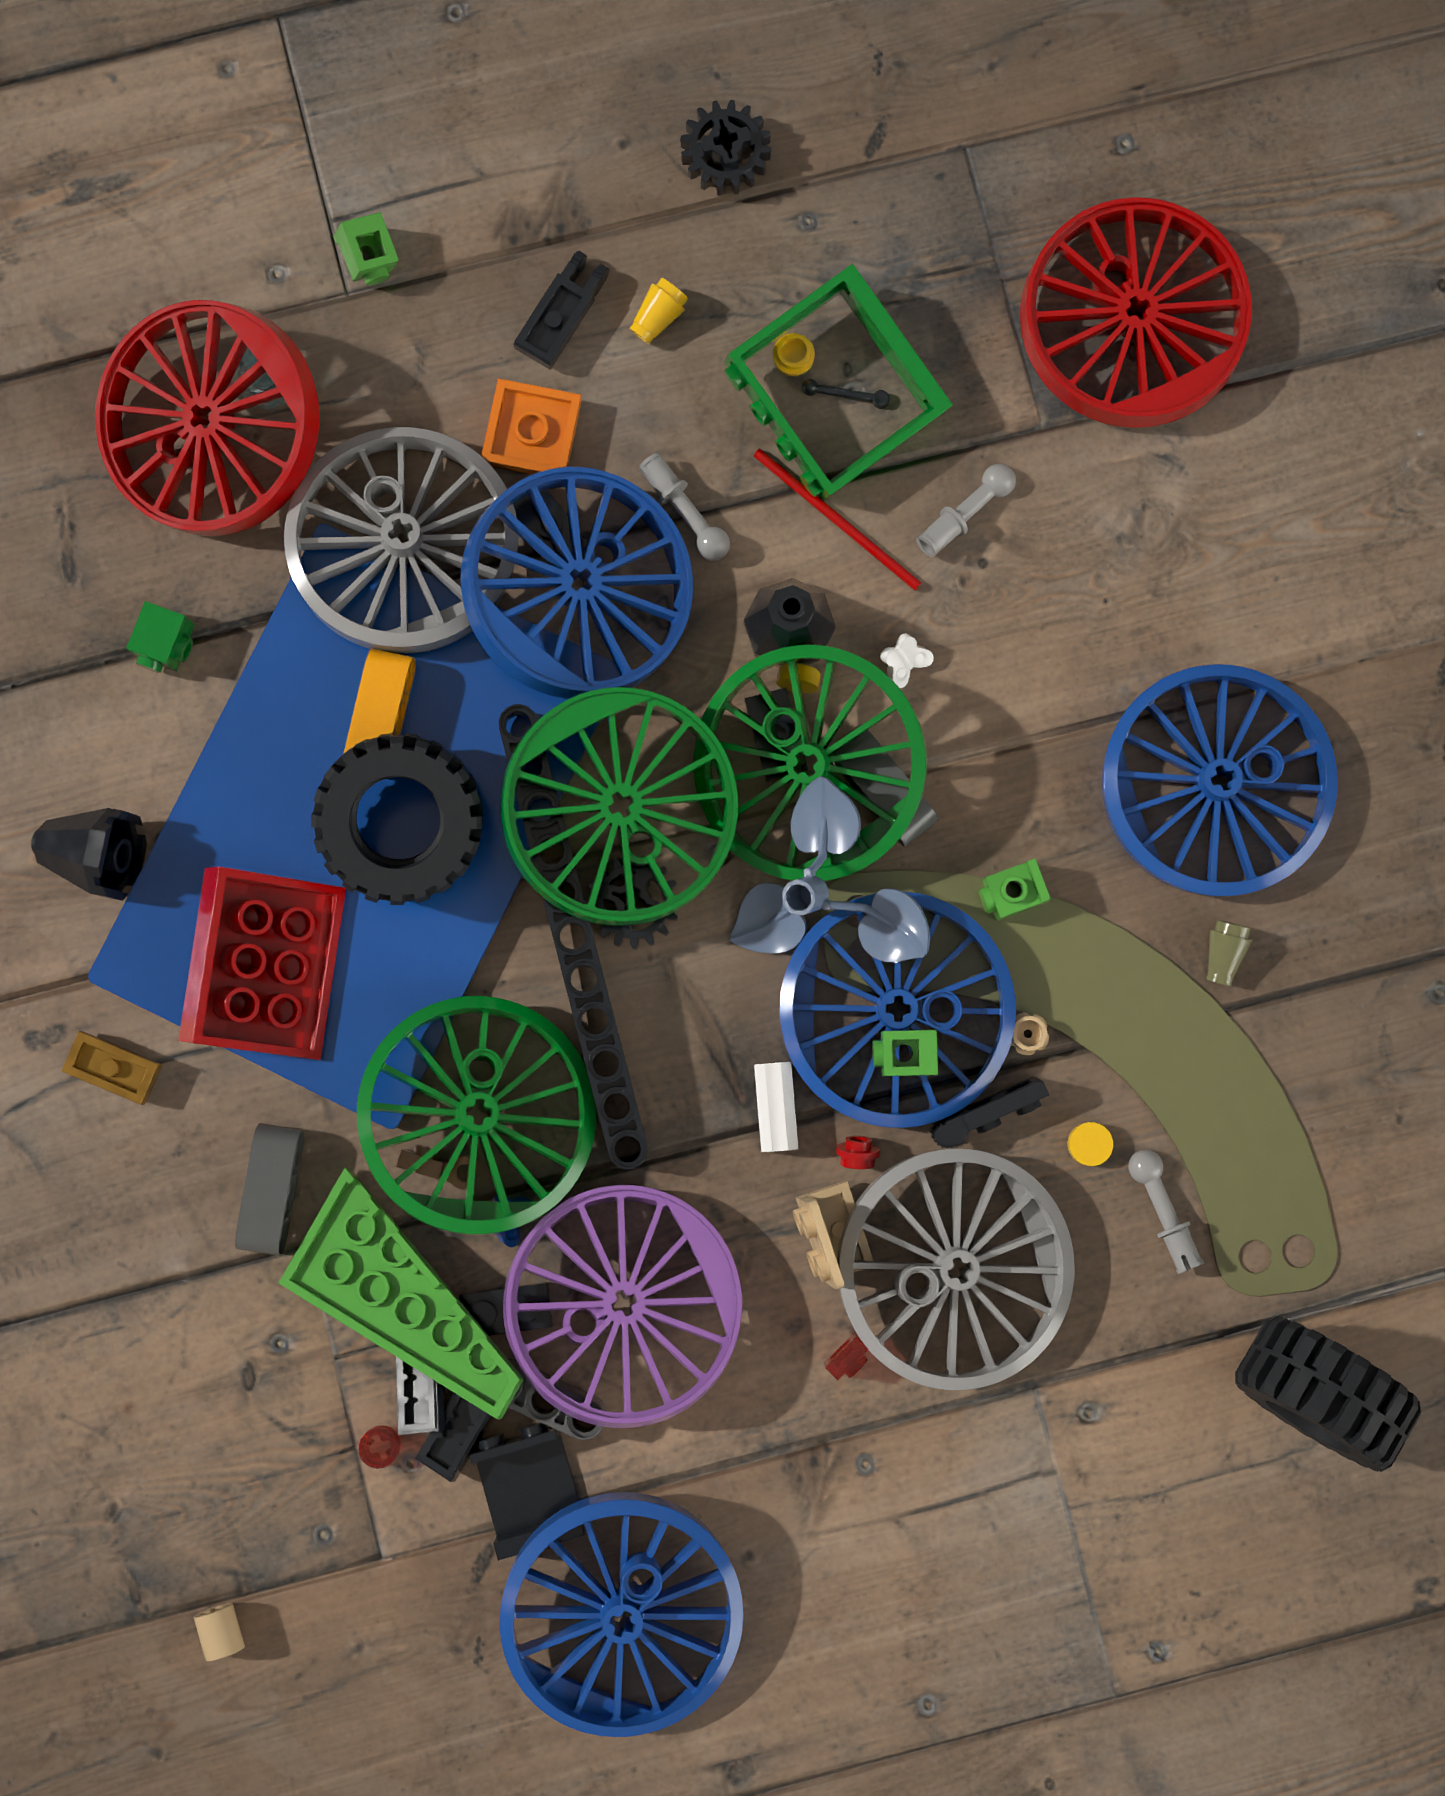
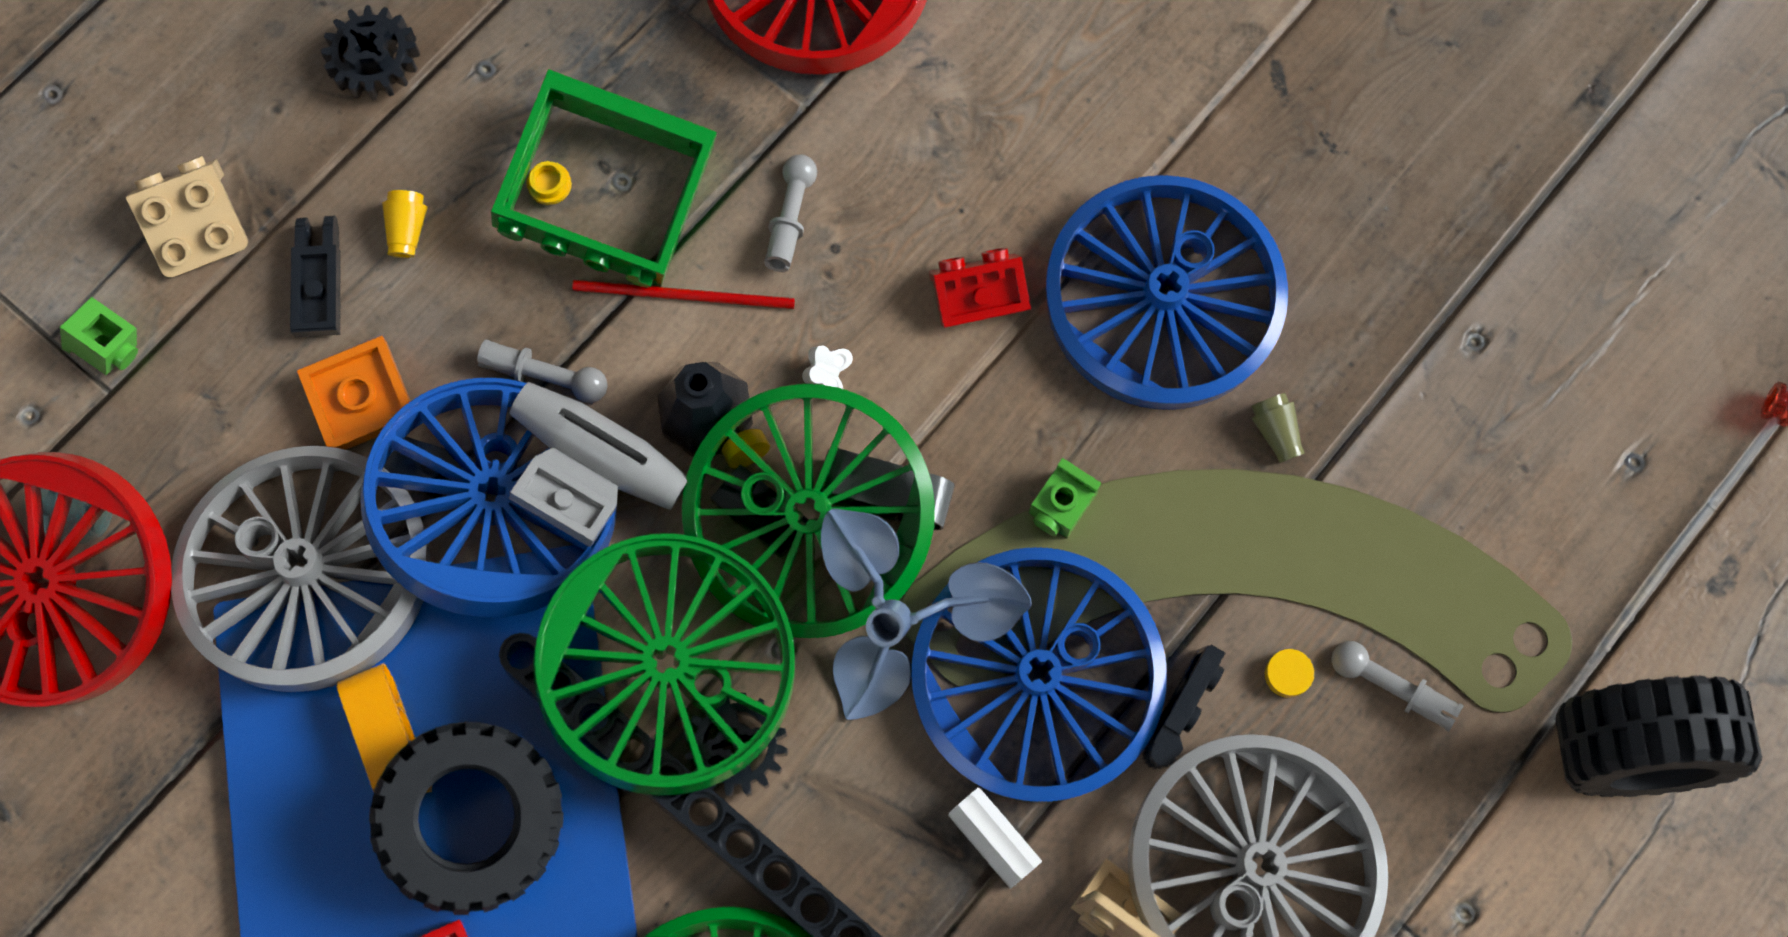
camera: 40 degrees left, 10 degrees down
(161, 638) = (128, 811): green brick -> none
(495, 191) = (187, 217): none -> tan bracket
(664, 610) = (586, 465): none -> light grey plate
(858, 1153) = (1096, 826): red plate -> none
(879, 398) = (649, 172): black hinge -> none
(923, 1057) = (1085, 687): bright green brick -> none
(1039, 1036) = (1174, 607): tan plate -> none
(1072, 675) = (980, 287): none -> red bracket

